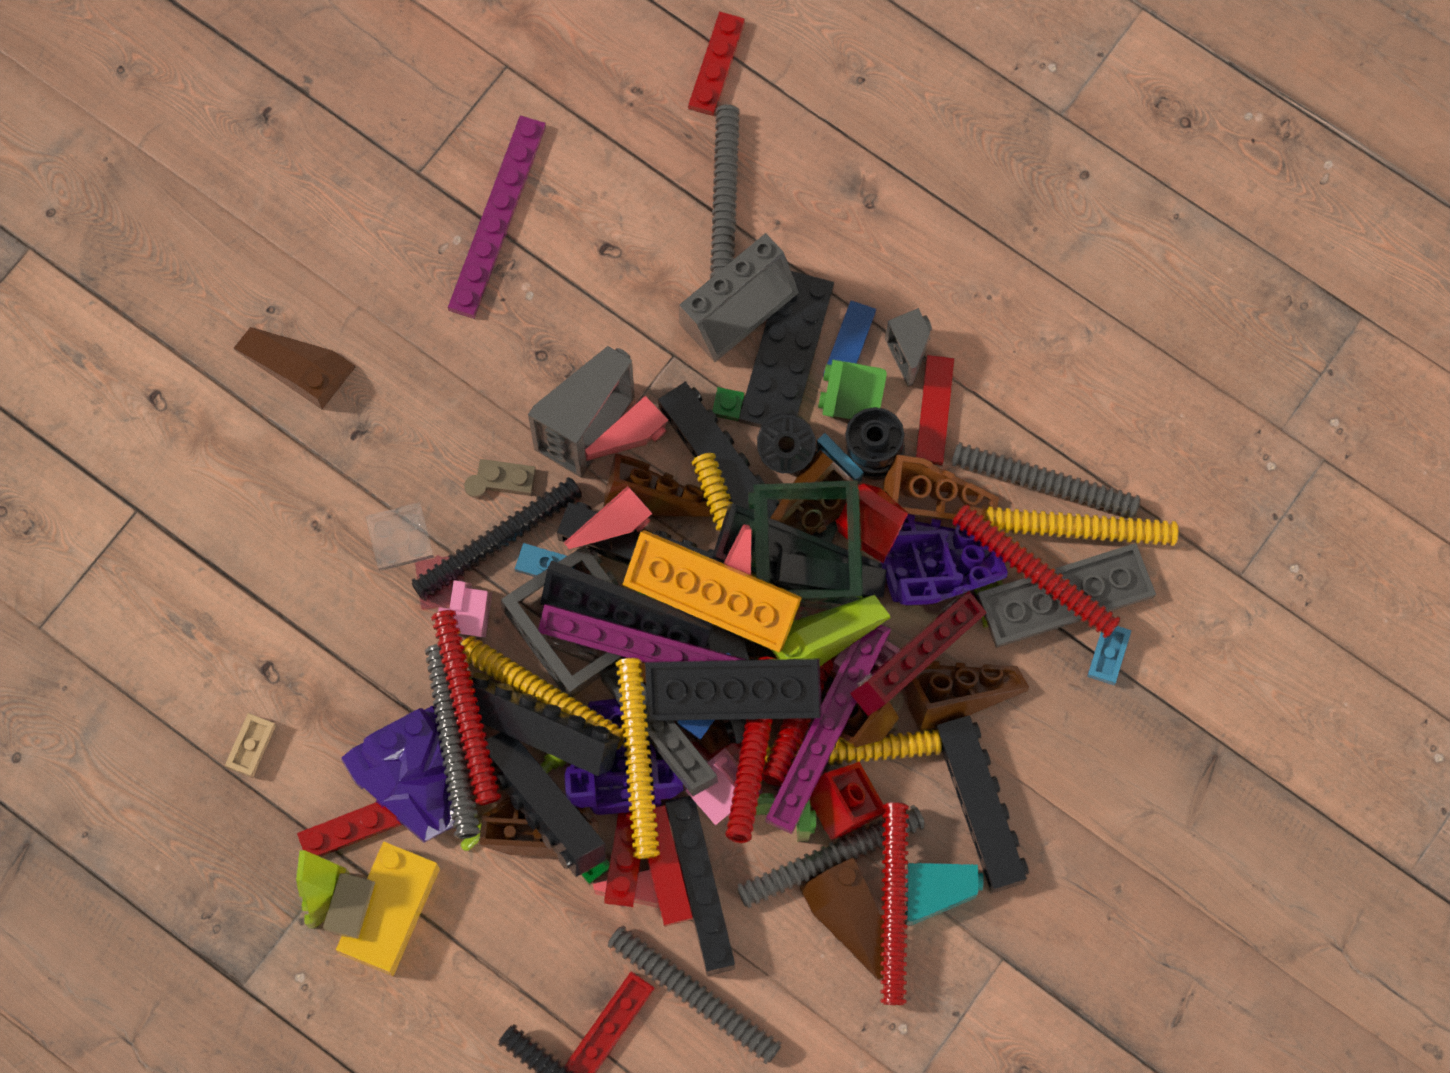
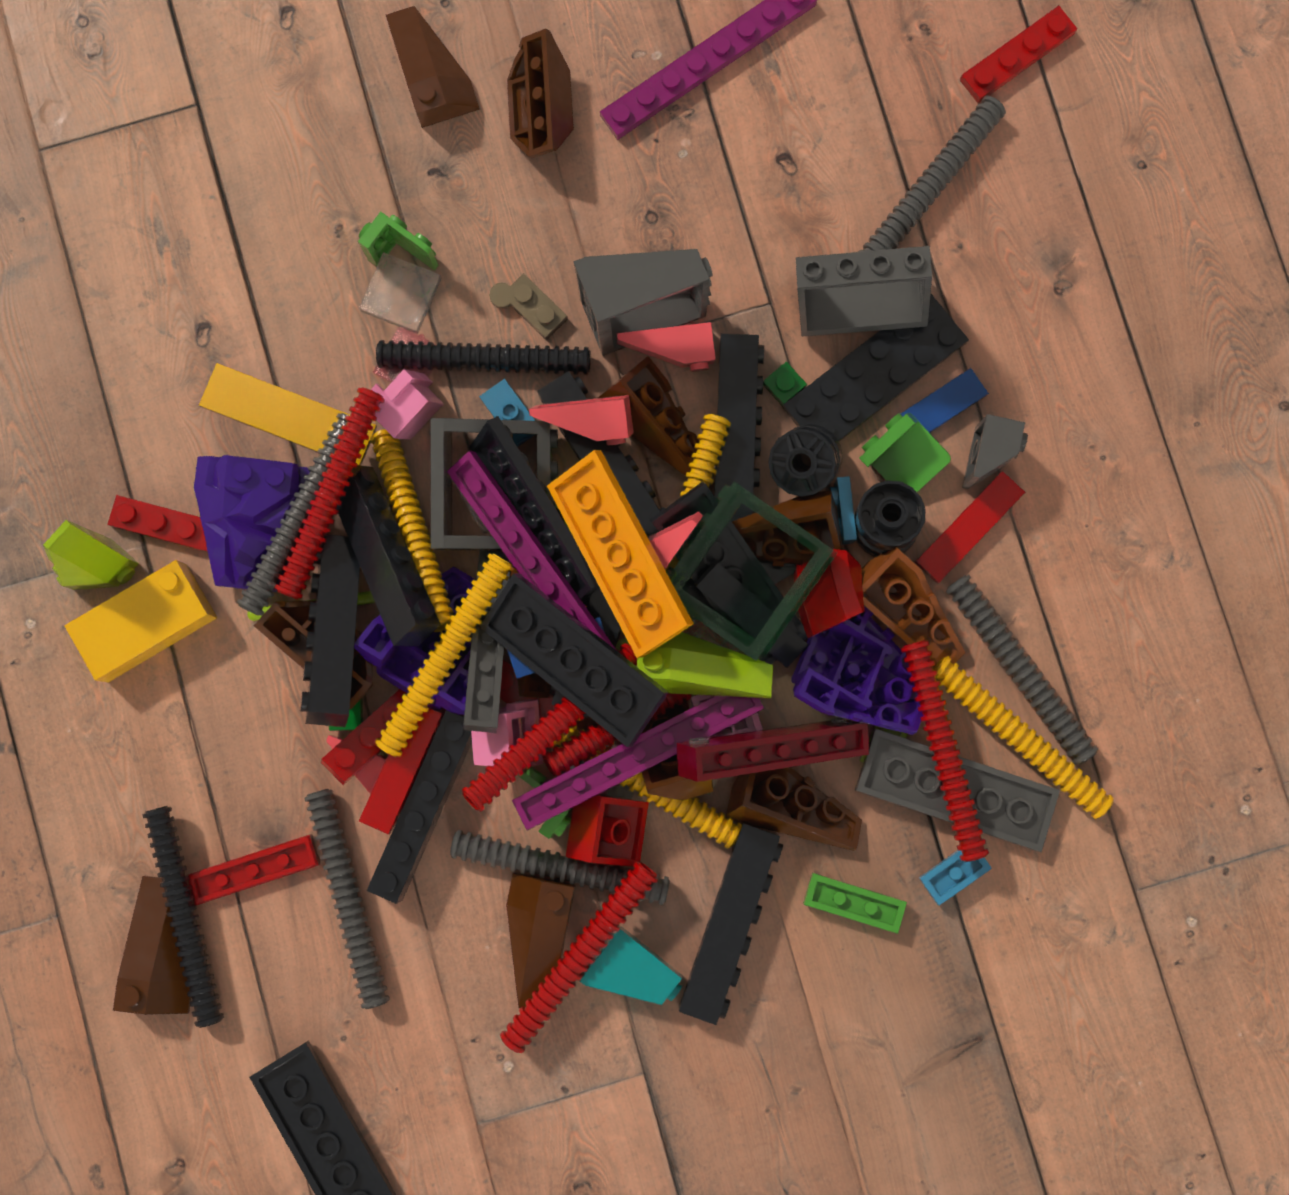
camera: 45 degrees right, 10 degrees up
(250, 745) = (134, 387): tan plate -> none
(348, 906) = (99, 596): dark tan slope -> none
(365, 688) = (271, 408): none -> yellow sticker
(369, 493) = (387, 232): none -> bright green bracket
(396, 327) = (539, 96): none -> reddish brown wedge
(1056, 725) = (854, 903): none -> bright green plate

